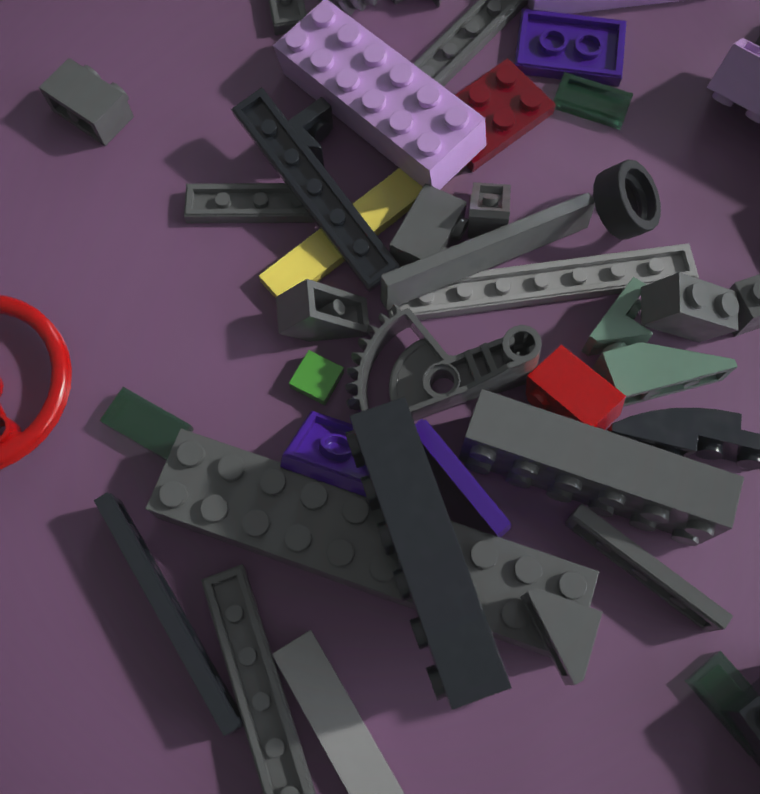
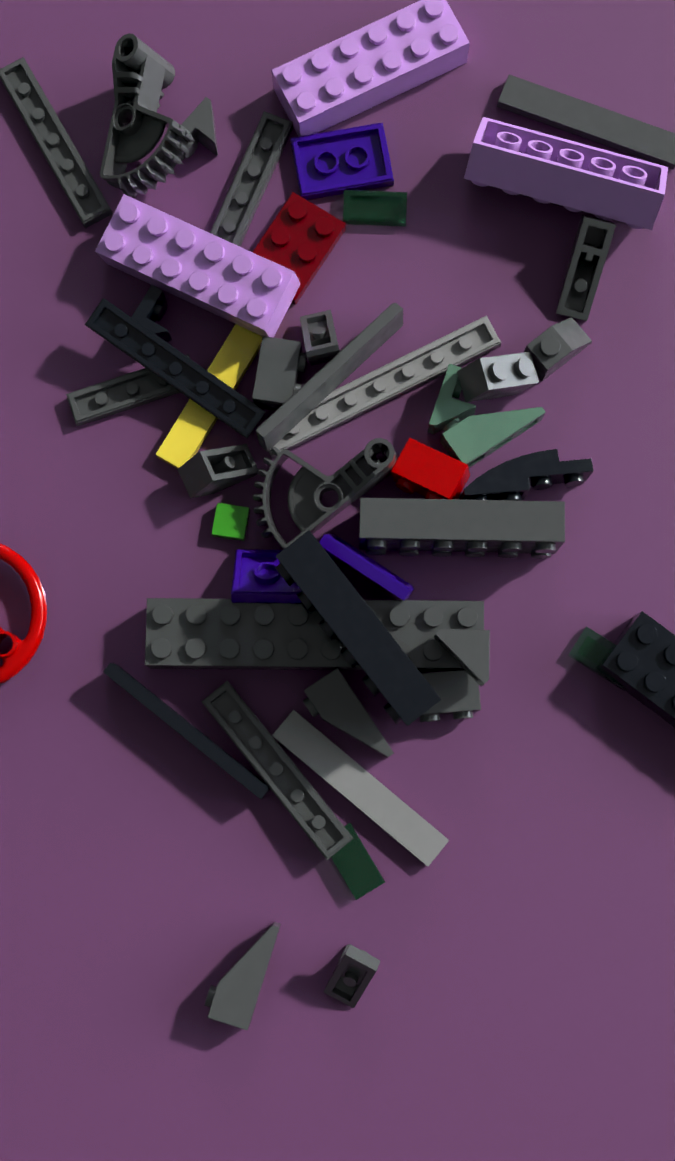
camera: 15 degrees left, 10 degrees up
(144, 422) = (114, 601): clear green tile -> none
(370, 648) = (341, 708): none -> dark grey slope
(532, 680) = (457, 692): none -> dark grey brick
(627, 199) = (415, 307): black tyre -> none
(648, 570) = (518, 586): dark grey tile -> none

